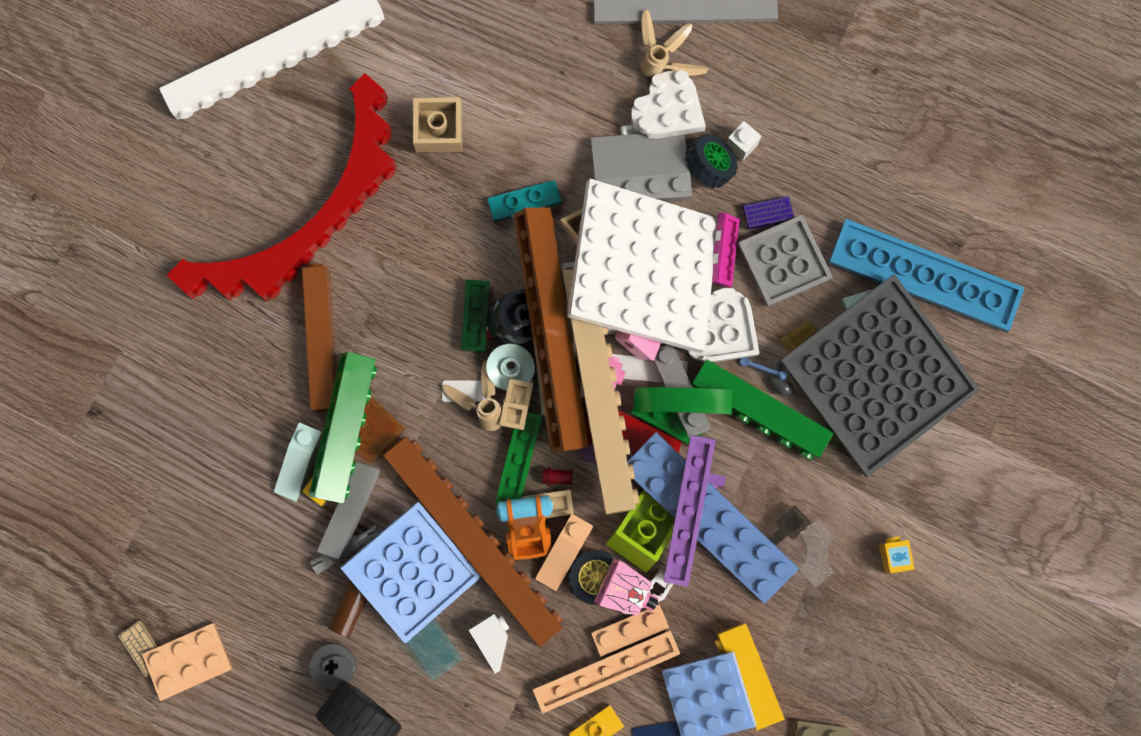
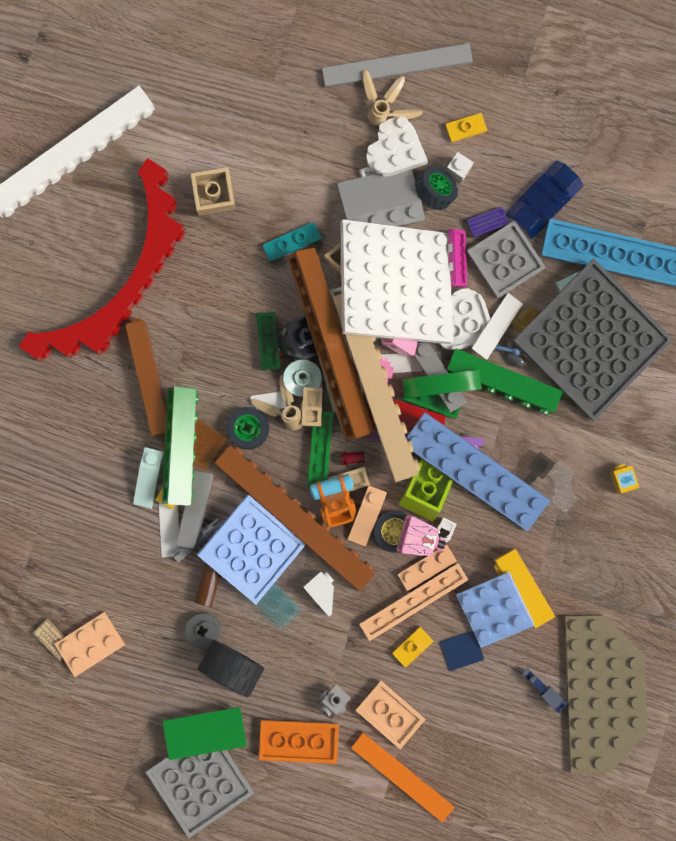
camera: 10 degrees left, 5 degrees up
(313, 529) = (168, 528): none -> white sticker
(432, 419) = (247, 428): none -> black wheel
(689, 510) = (459, 469): medium lavender plate -> none
(758, 96) = (466, 127): none -> yellow plate
(762, 340) = (497, 326): none -> white sticker
(844, 194) = (545, 198): none -> clear blue piece

